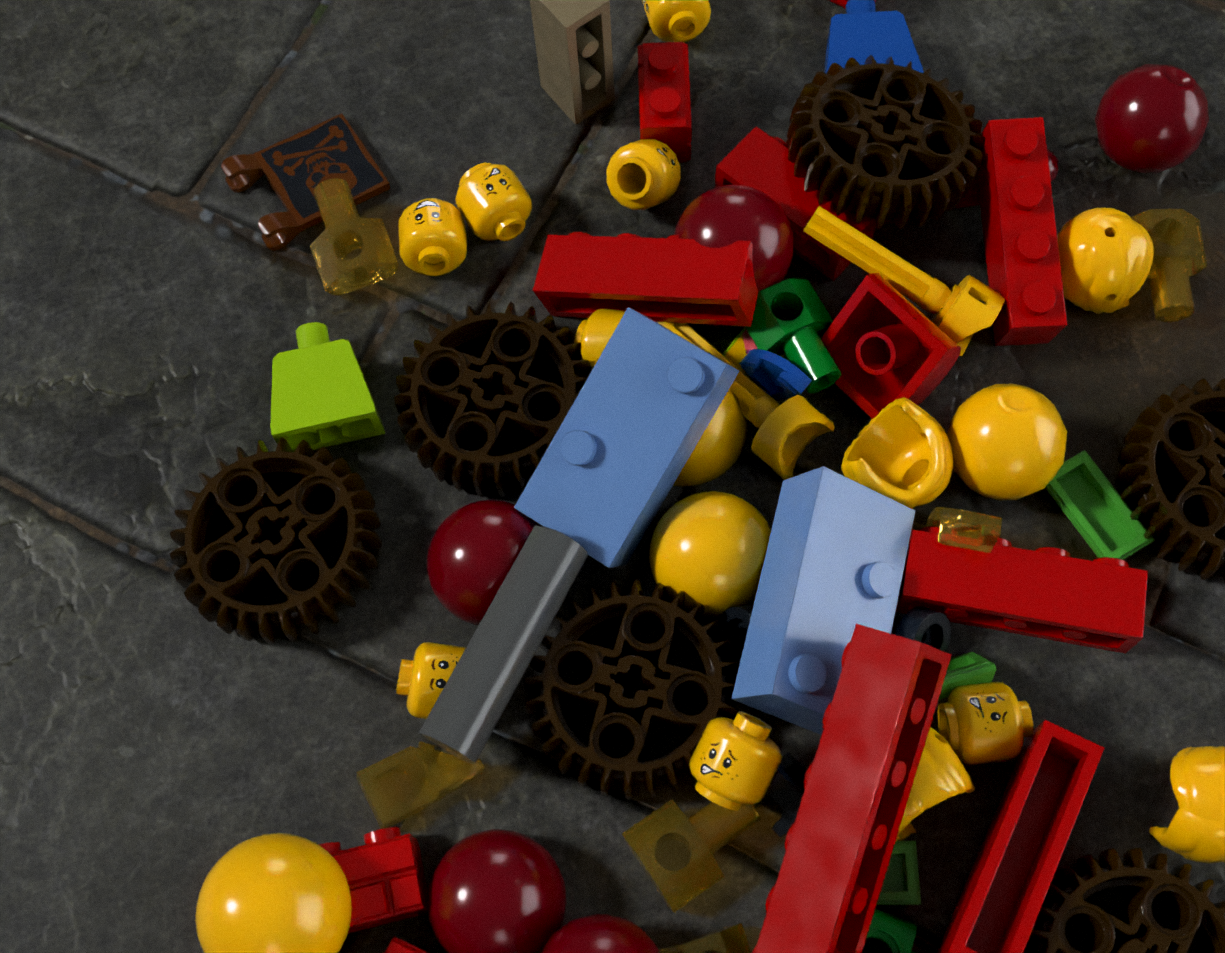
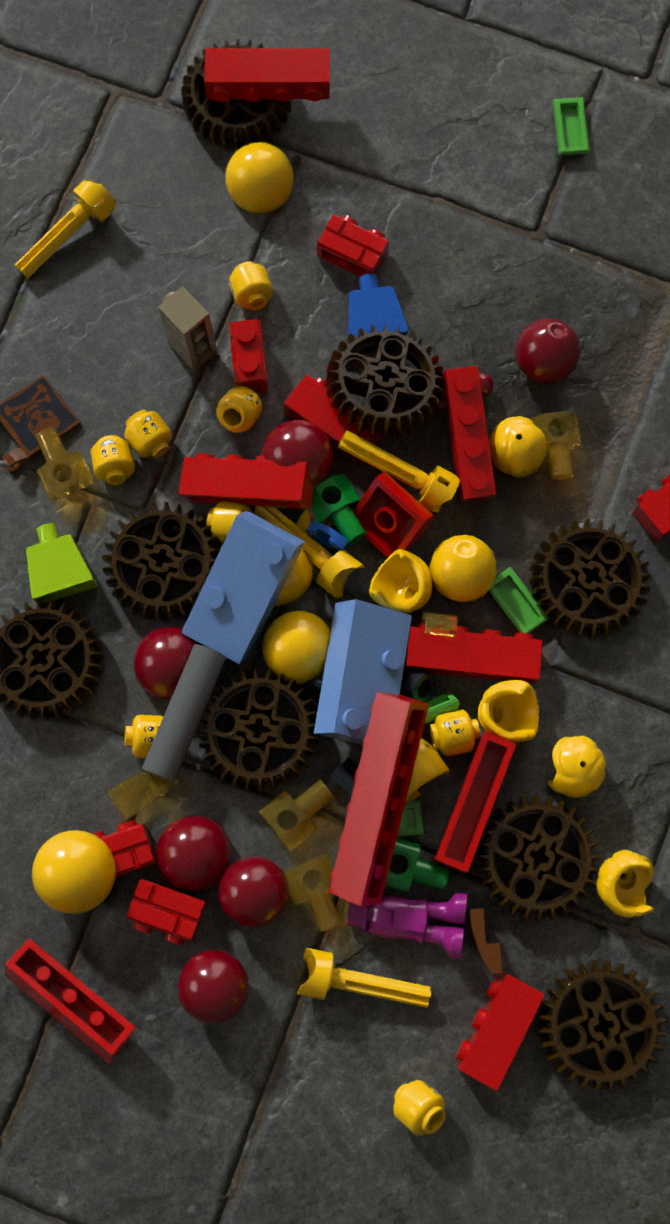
camera: 10 degrees left, 10 degrees up
(735, 761) = (317, 769): yellow head -> none
(1088, 689) = (510, 711): none -> yellow piece

